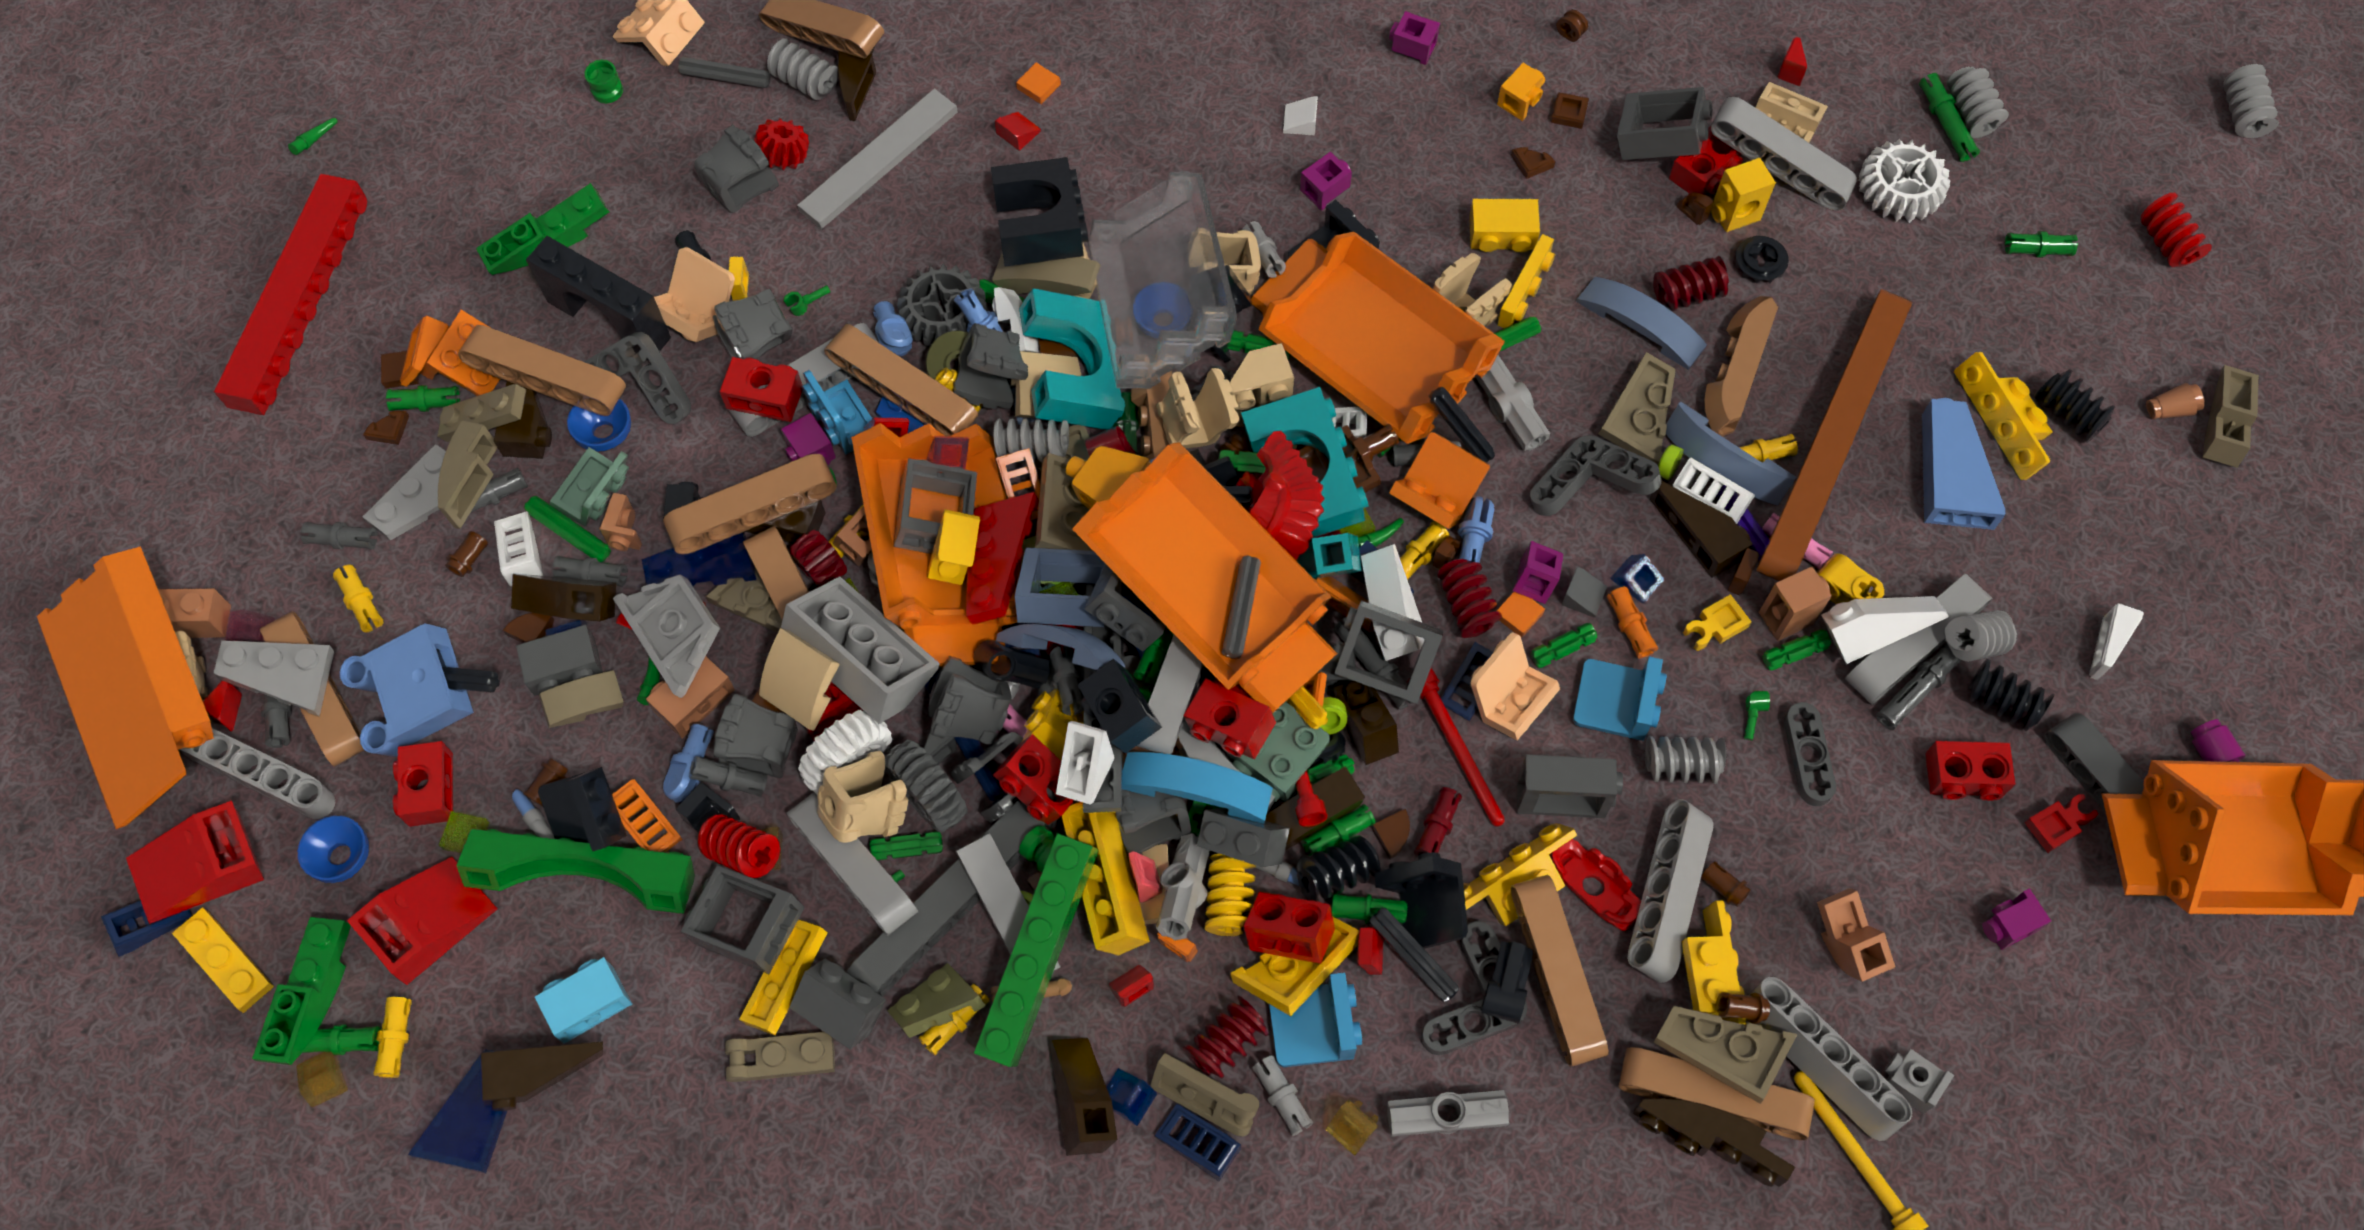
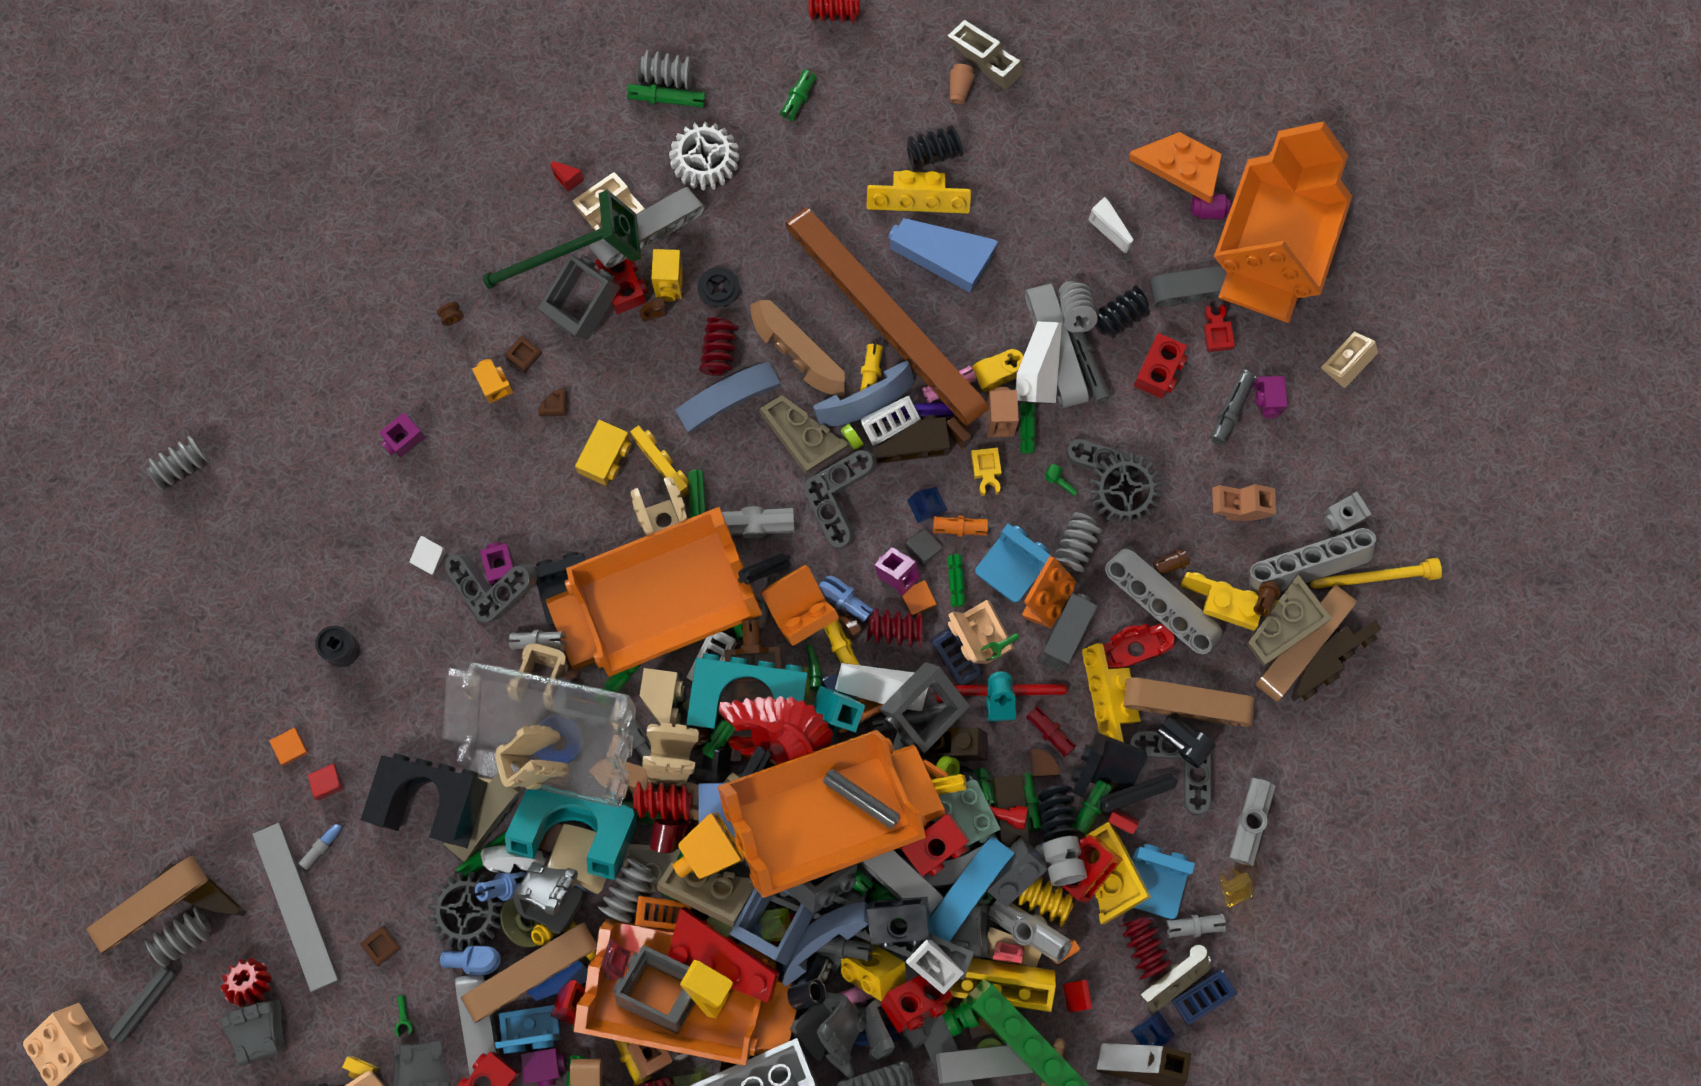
camera: 70 degrees left, 10 degrees up
(871, 248) = (380, 946): none -> reddish brown tile
(949, 153) = (320, 846): none -> light grey piece
(1127, 266) = (533, 772): none -> tan piece
(1143, 423) = (663, 801): none -> red piece
(1161, 74) = (337, 646): none -> black wheel
(1285, 179) = (486, 594): none -> dark grey beam
(1285, 881) = (1064, 861): none -> light grey wheel
(1447, 745) = (1000, 698): none -> teal piece
(1509, 715) = (997, 647): none -> green hand
(1607, 735) = (1049, 594): none -> orange bracket
(1761, 100) = (617, 229): none -> dark green tile
(1777, 795) = (1129, 510): none -> dark grey gear
(1957, 880) = (1228, 416): none -> dark grey pin
(2130, 1009) = (1350, 358): none -> tan slope
(2250, 690) = (1181, 163): none -> orange wing

